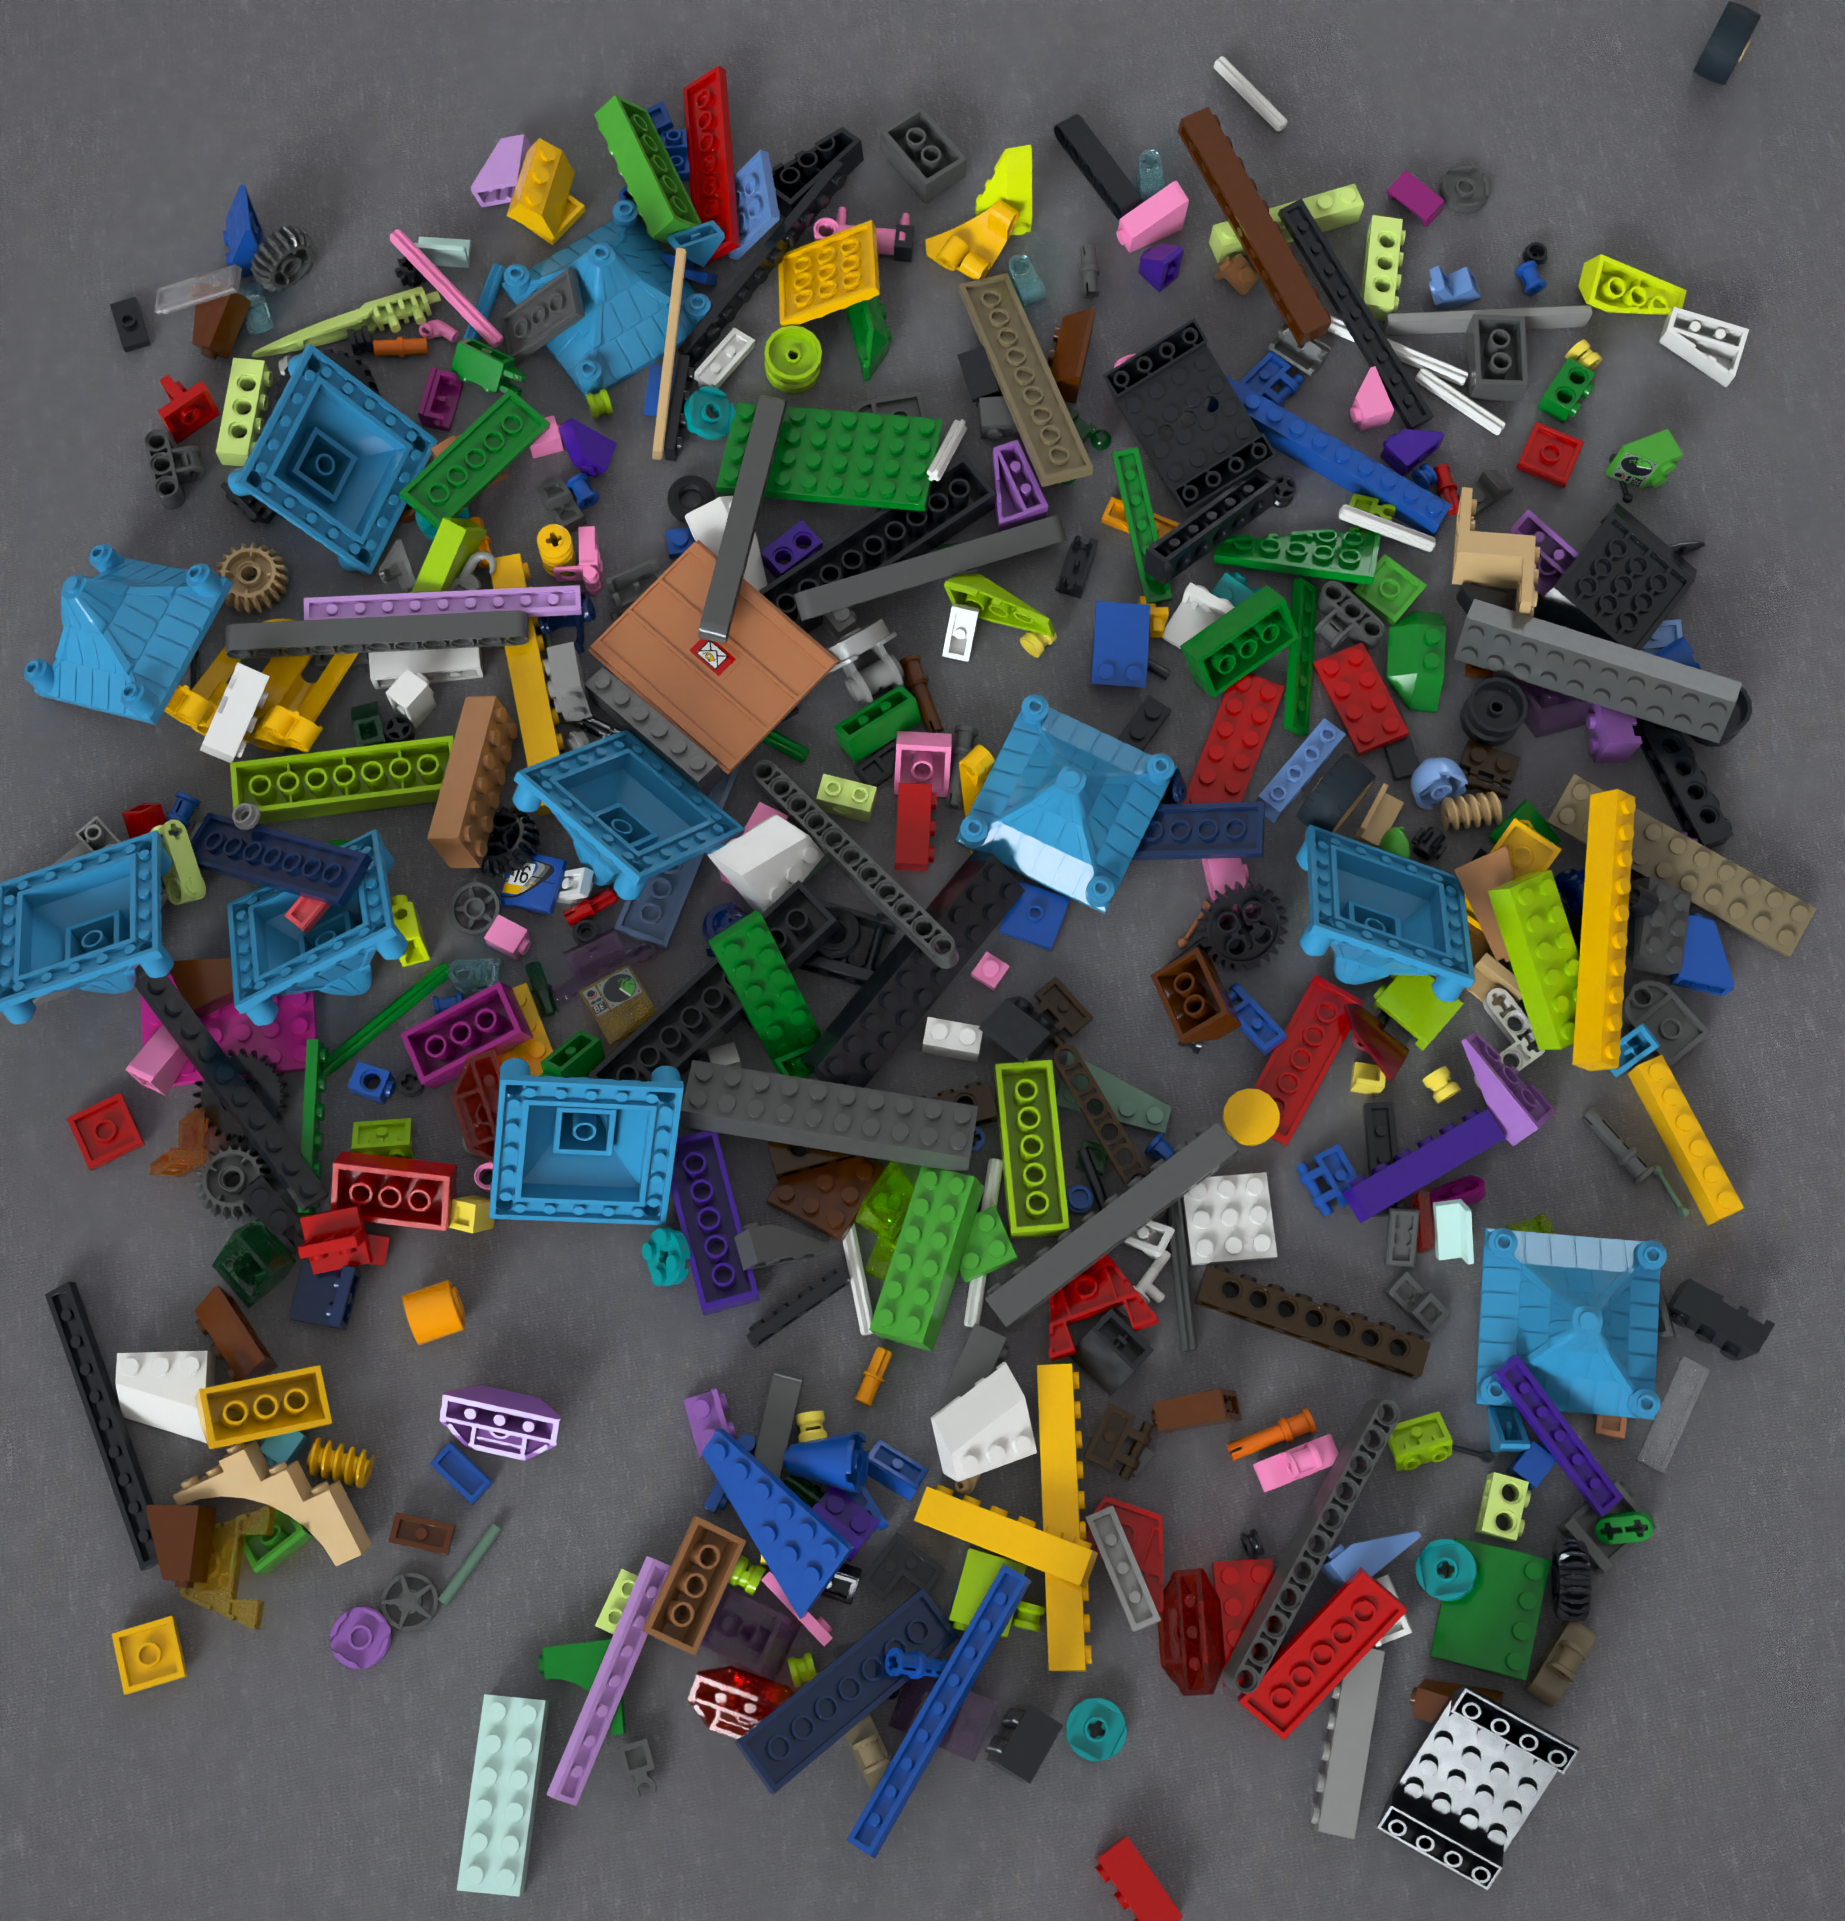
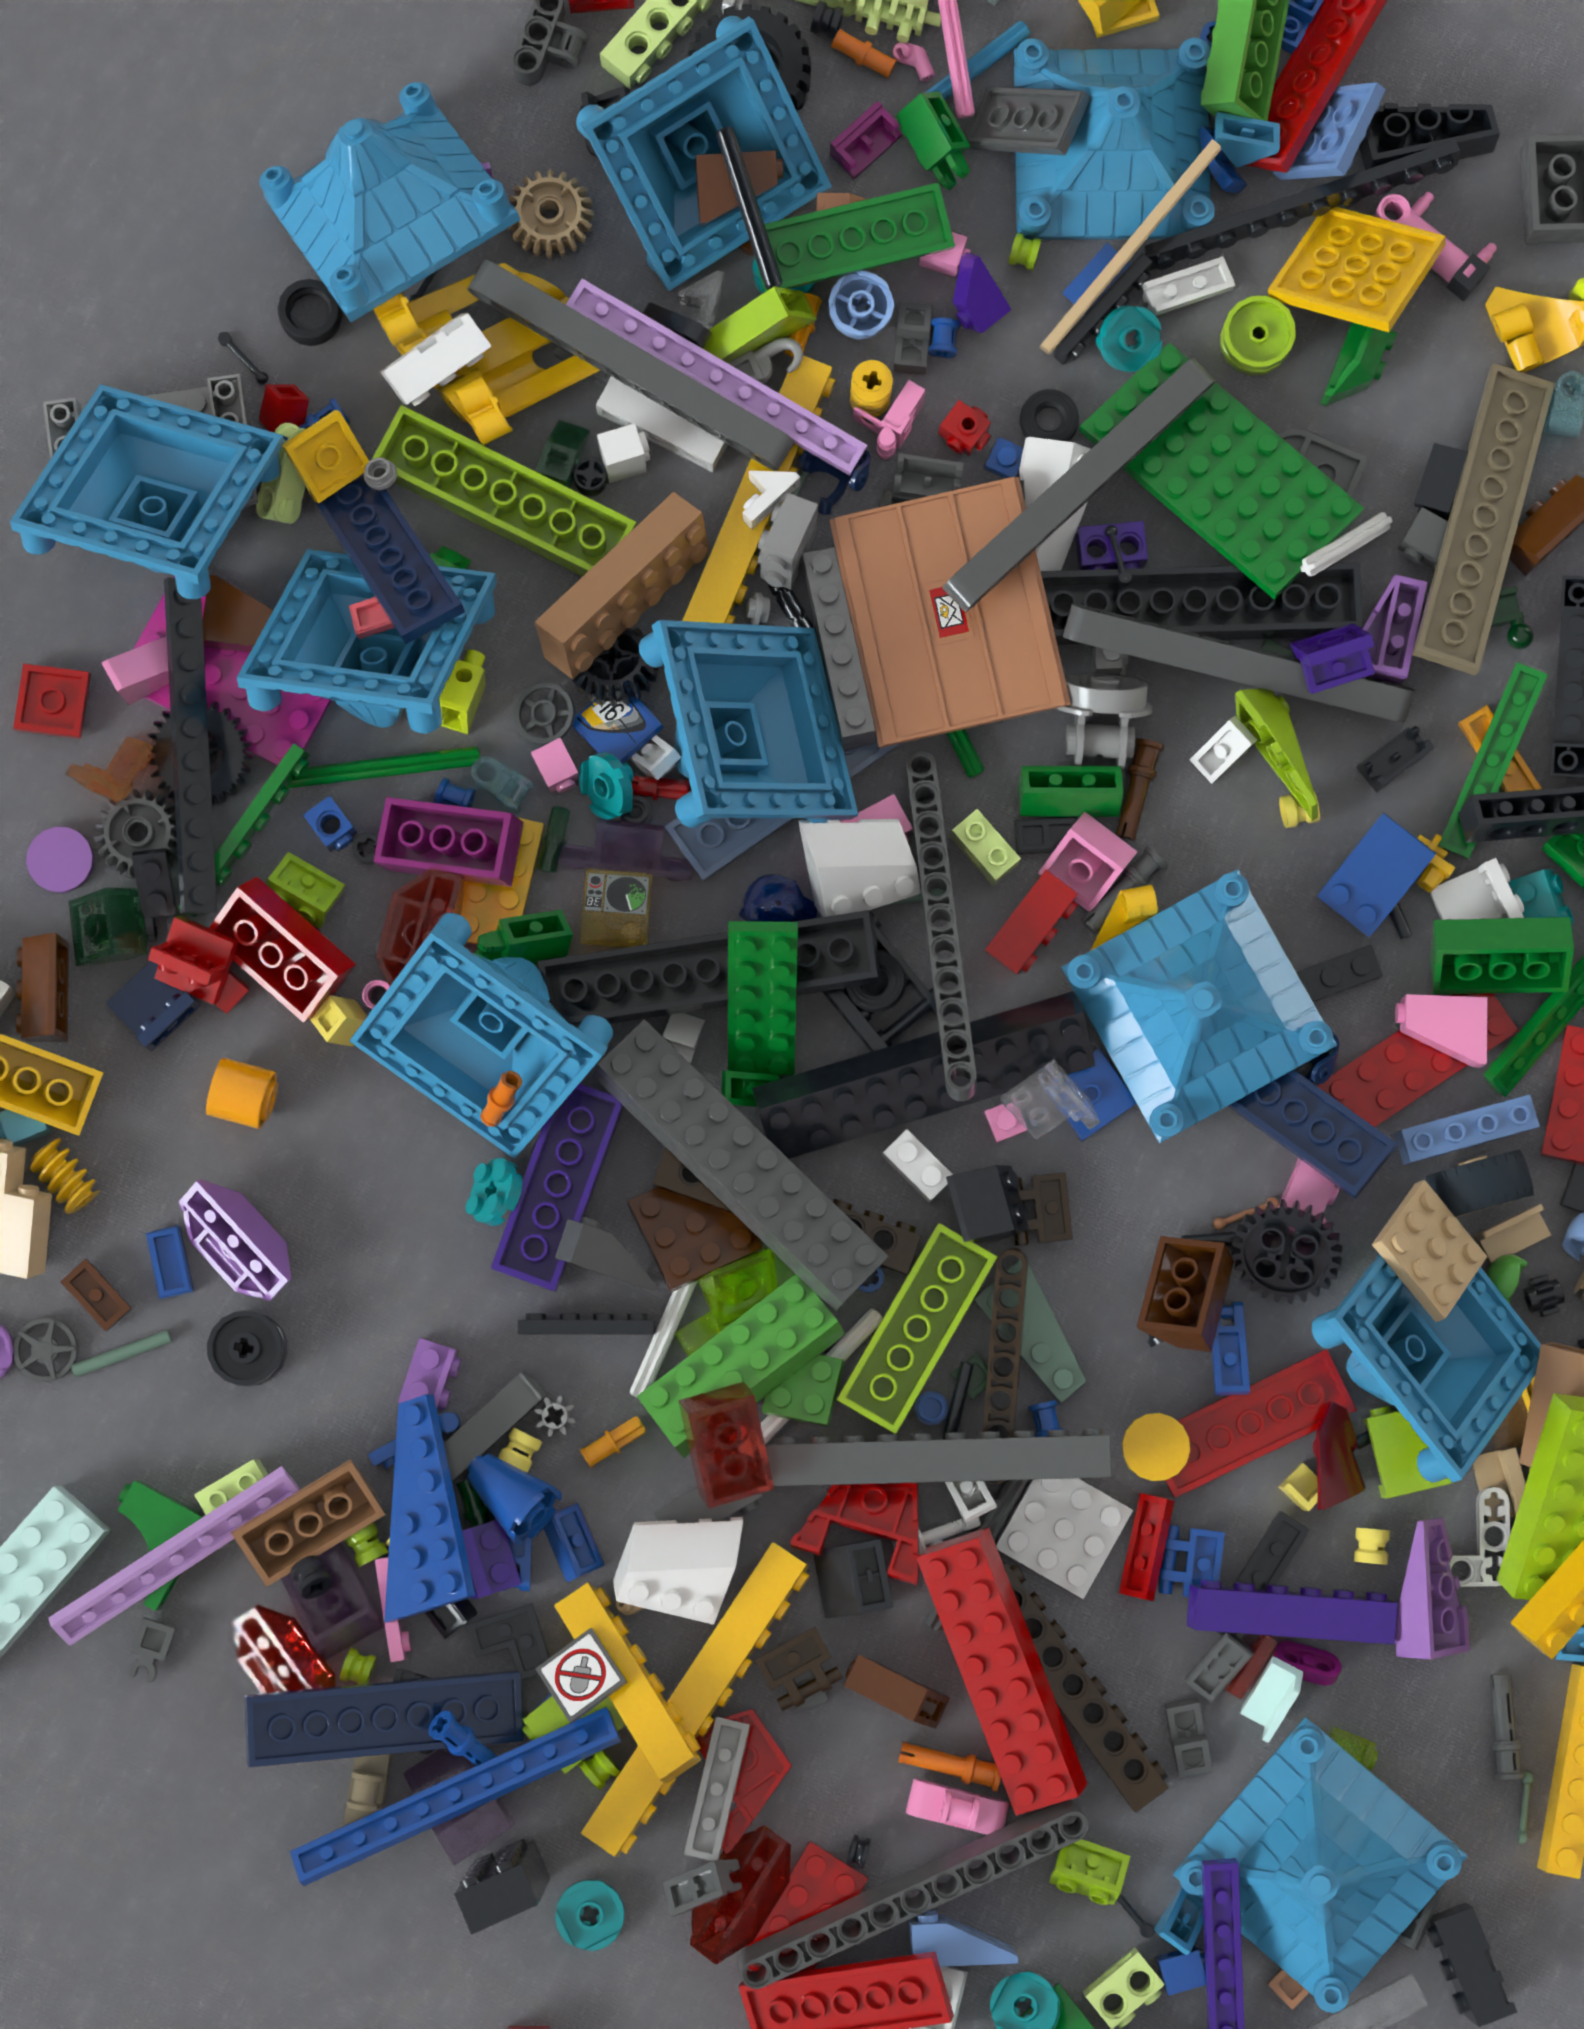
camera: 35 degrees right, 10 degrees up
(71, 805) = (225, 340): none -> black hinge
(108, 732) = (295, 292): none -> black tyre
(186, 1239) = (60, 859): none -> medium lavender tile
(199, 828) = (326, 456): none -> yellow plate
(367, 469) = (715, 188): none -> reddish brown slope
(390, 476) = (749, 207): none -> black axle
(397, 585) = (679, 324): none -> black beam
(511, 501) = (860, 305): none -> light blue cylinder
(532, 654) = (774, 489): none -> white slope
(544, 1490) = (227, 1344): none -> black wheel
(560, 913) = (614, 795): none -> teal plate
(628, 1180) = (501, 1098): none -> orange pin
(639, 538) = (965, 429): none -> red brick
(723, 1624) = (311, 1576): none -> black wheel
(816, 559) = (1124, 577): none -> black hinge
(817, 1379) = (546, 1413): none -> light grey gear
(958, 1314) = (726, 1444): none -> clear red brick
(970, 1553) = (581, 1675): none -> piece
(993, 520) = (1334, 657): none -> dark purple bracket
(1010, 933) = (1048, 1100): none -> clear bracket
(1161, 1646) = (701, 1886): none -> dark grey hinge
(1238, 709) = (1447, 1024): none -> bright pink slope
(1261, 1341) = (1002, 1671): none -> red brick
(1293, 1190) = (1146, 1547): none -> red plate
(1338, 852) = (1429, 1250): none -> tan plate

